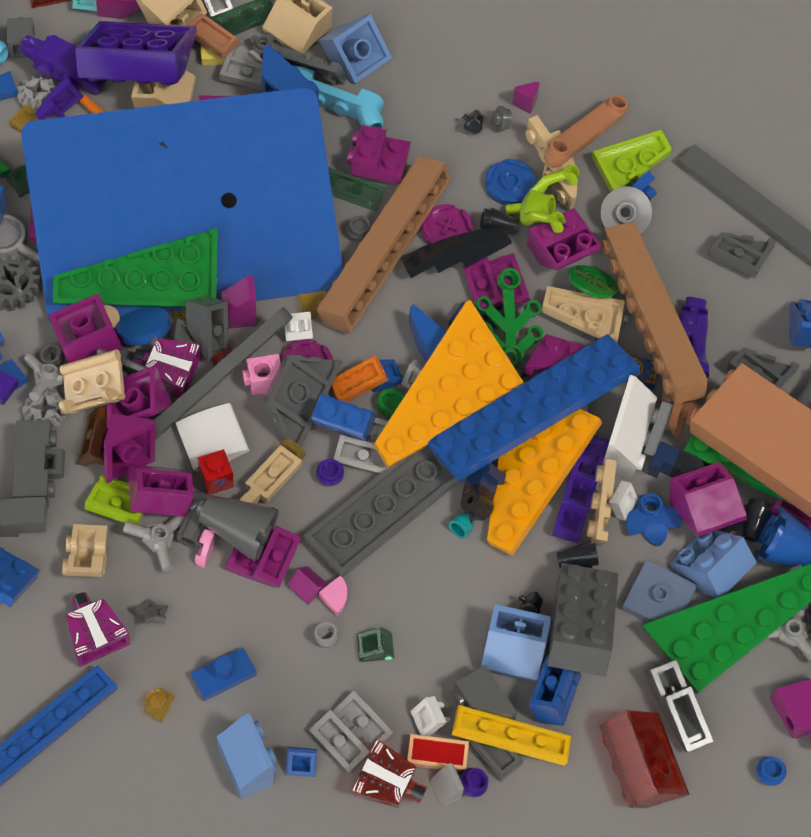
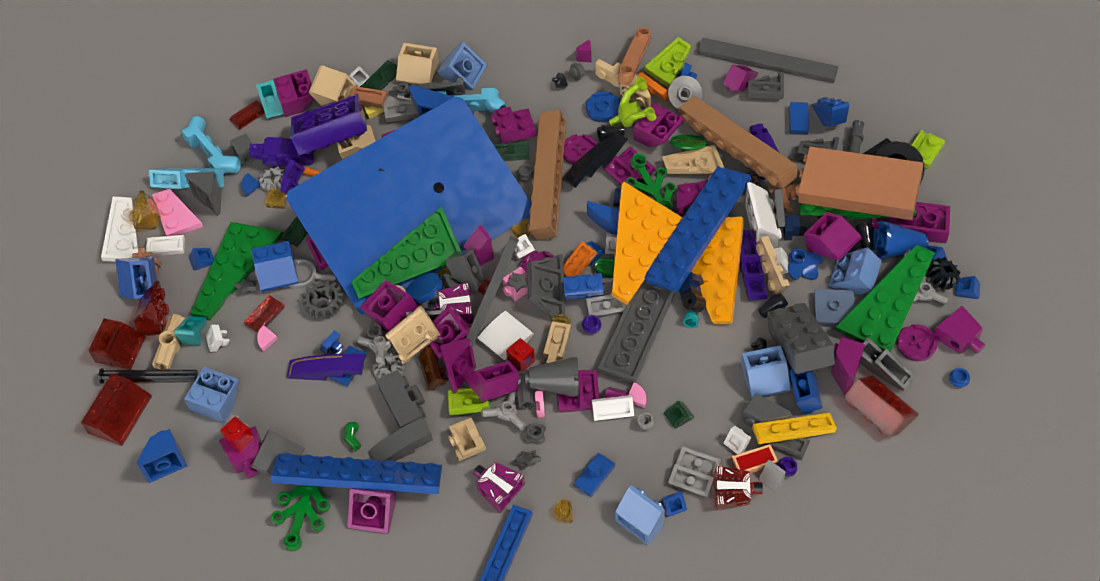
camera: 15 degrees left, 5 degrees down
(178, 575) = (531, 429): none -> dark grey plate
(262, 372) = (518, 281): none -> dark grey piece
(294, 596) = (613, 407): none -> white tile
(587, 184) = (654, 88): none -> orange plate
(628, 680) = (847, 361): none -> magenta slope
(710, 220) = (738, 78): none -> magenta slope
(742, 696) = (917, 342): none -> magenta tile
(761, 314) = (799, 118): none -> blue tile

